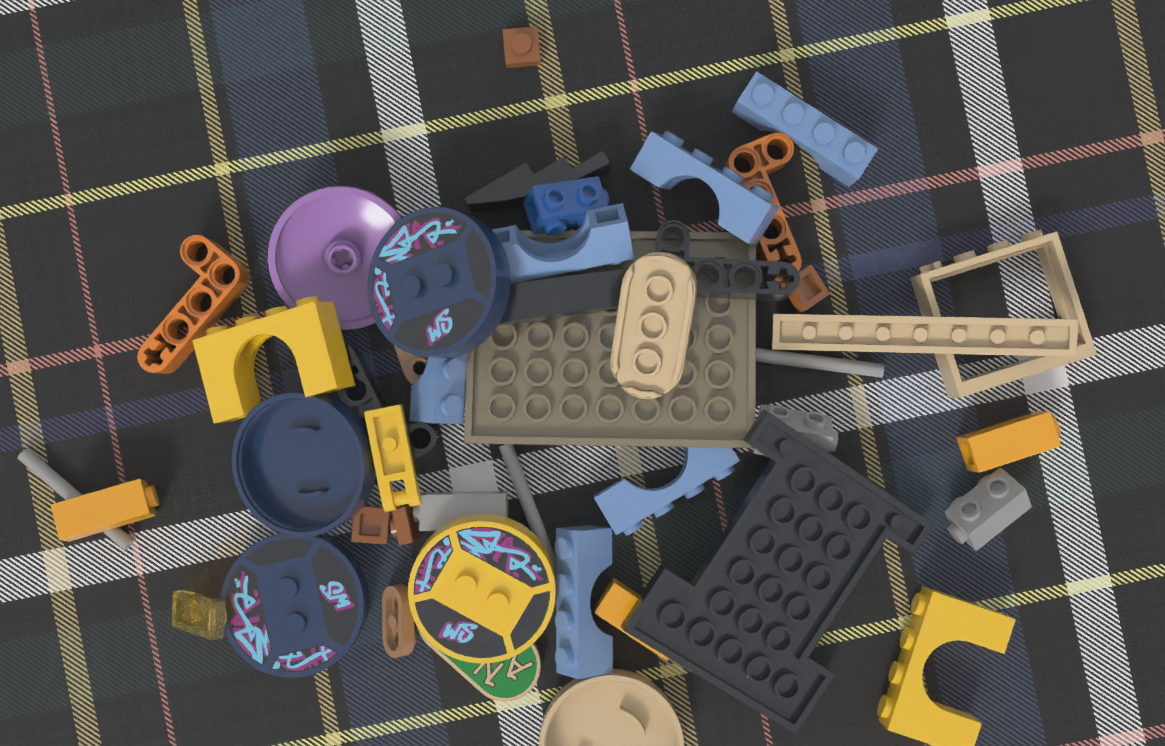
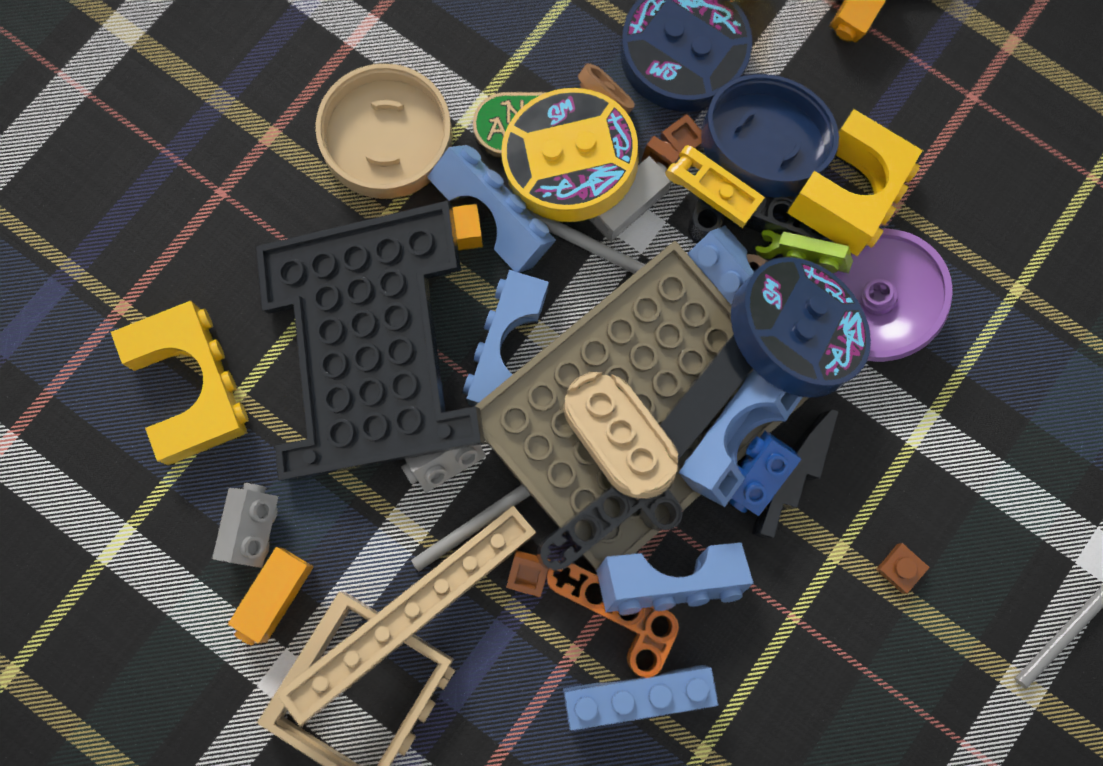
camera: 130 degrees right, 10 degrees down
(189, 308) = (934, 133): orange beam -> none
(369, 348) = (826, 254): none -> lime plate

